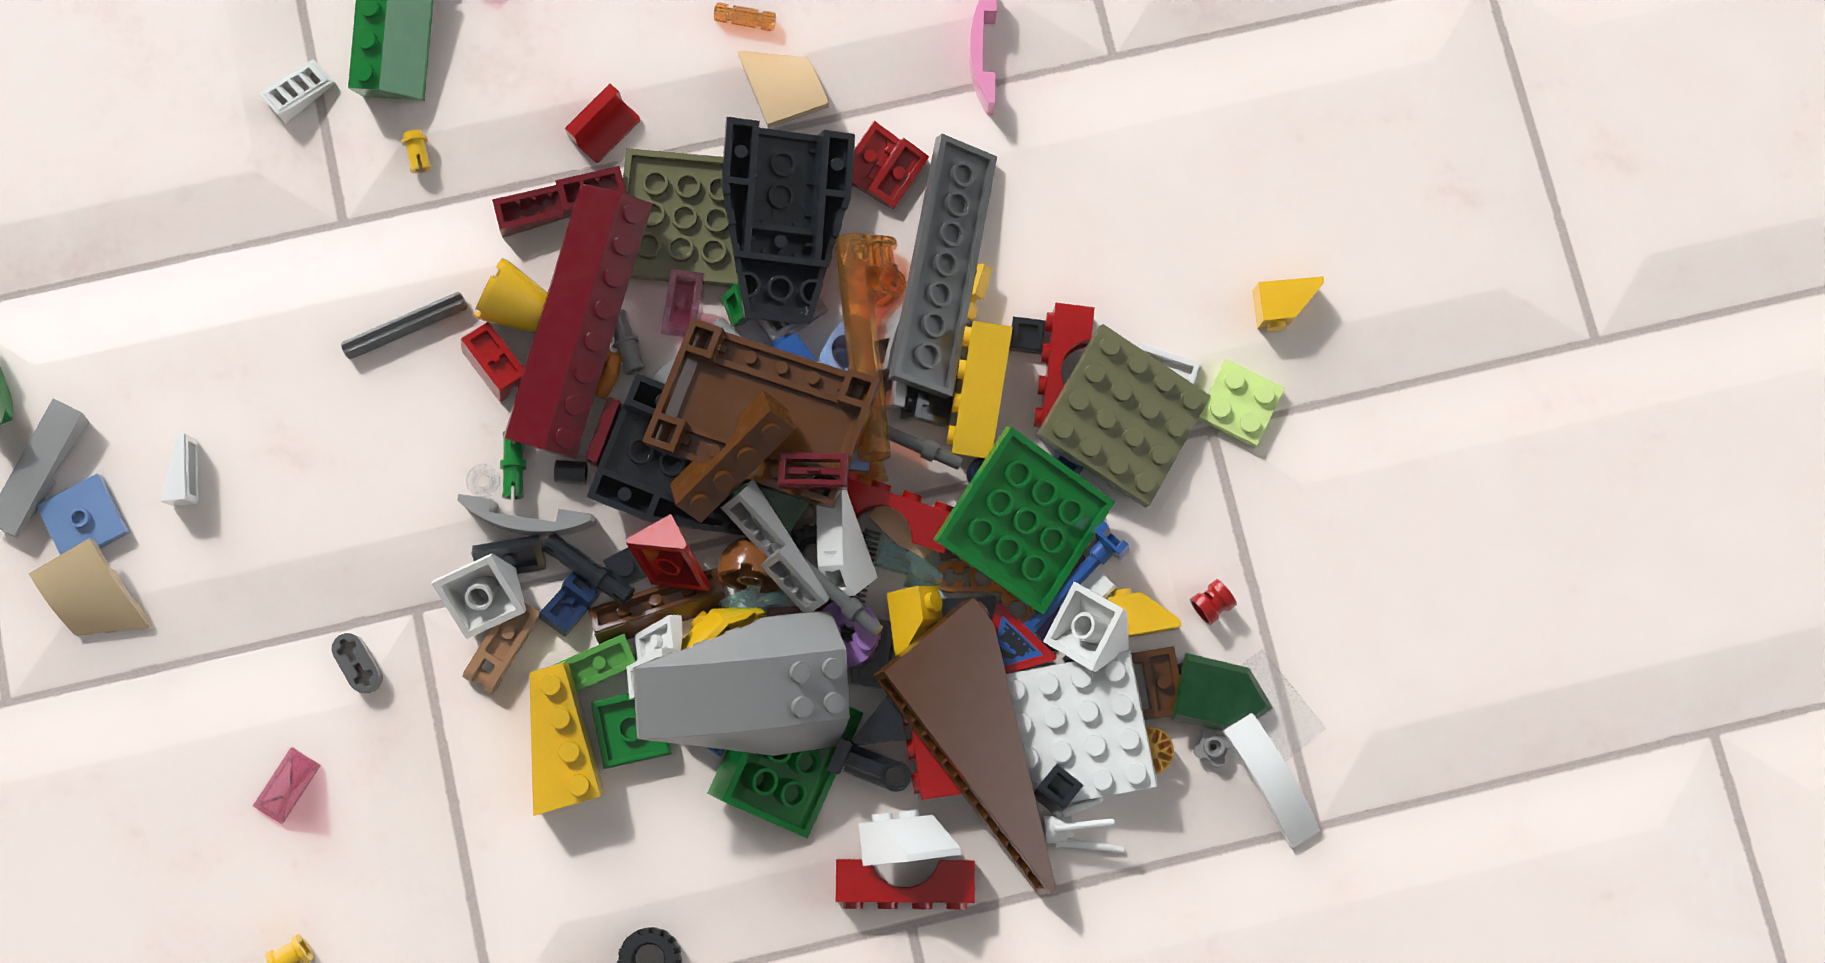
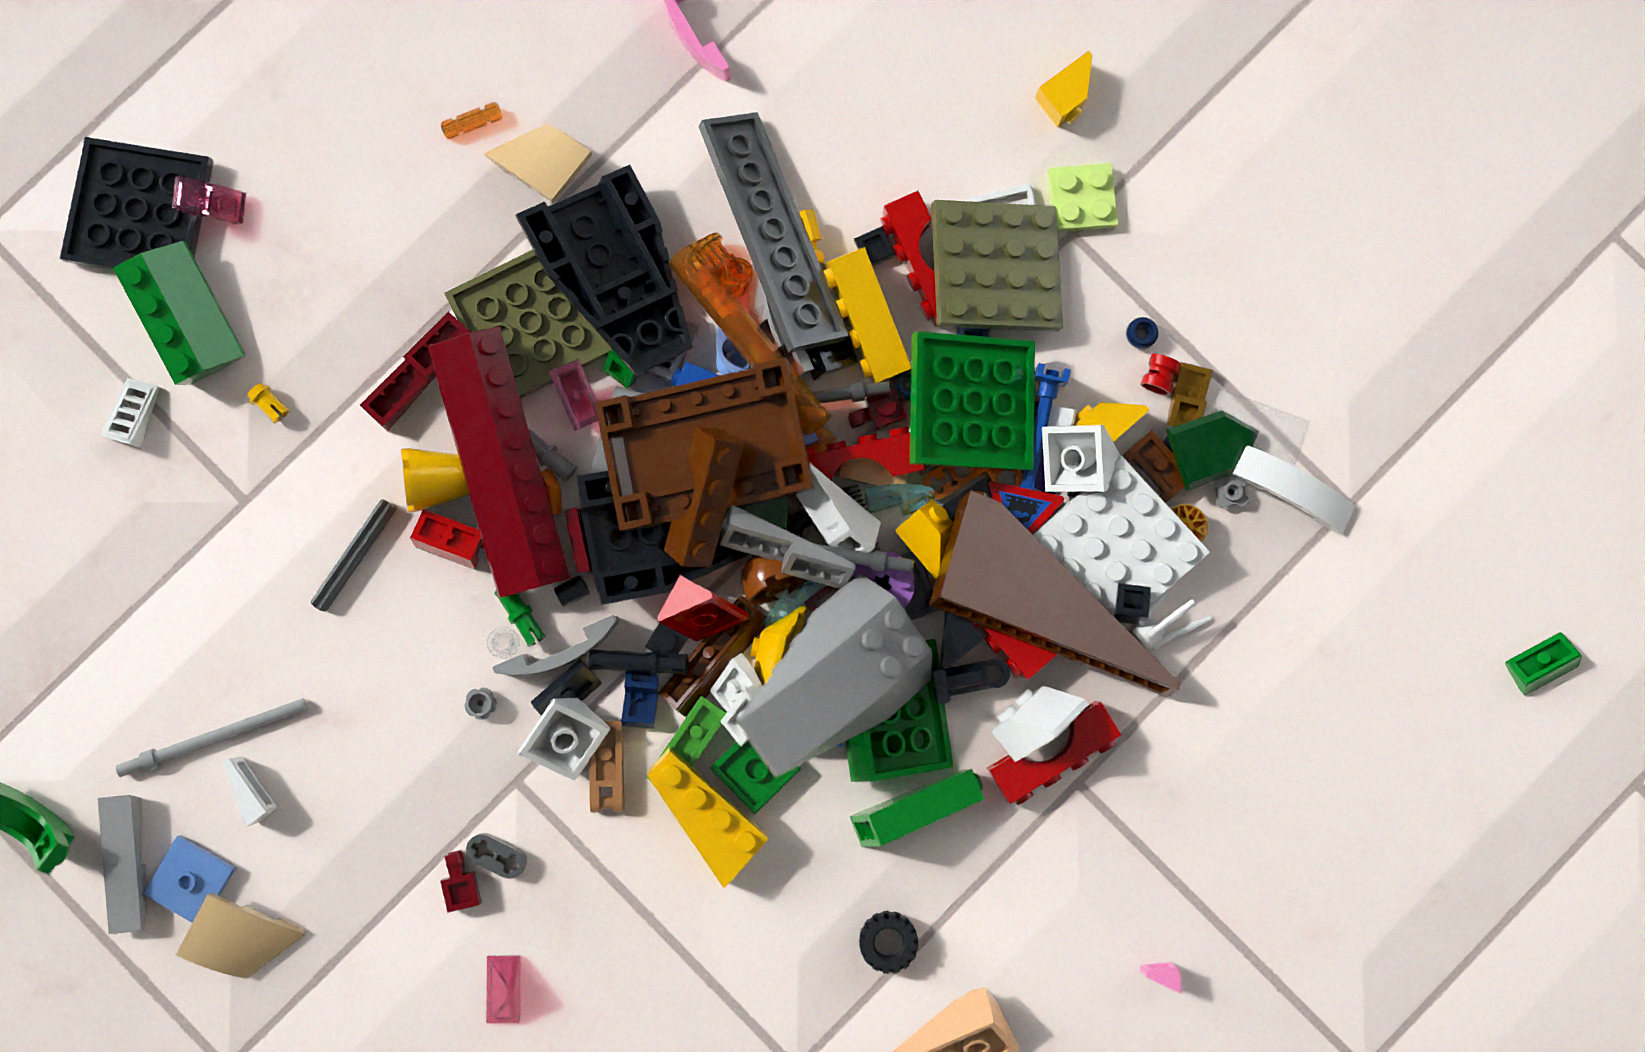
camera: 30 degrees left, 5 degrees up
(121, 394) = (153, 758): none -> light grey bar
(307, 671) = (460, 888): none -> dark red plate
(424, 513) = (474, 709): none -> light grey plate
(602, 124) = (410, 285): red panel -> none
(752, 854) = (917, 808): none -> green slope
(843, 471) = (779, 483): dark red tile -> none
(885, 165) = (669, 175): red slope -> none
(943, 480) = (880, 409): none -> dark red plate
(1229, 551) = (1150, 328): none -> dark blue plate
(1229, 635) = (1189, 394): none -> pearl gold slope

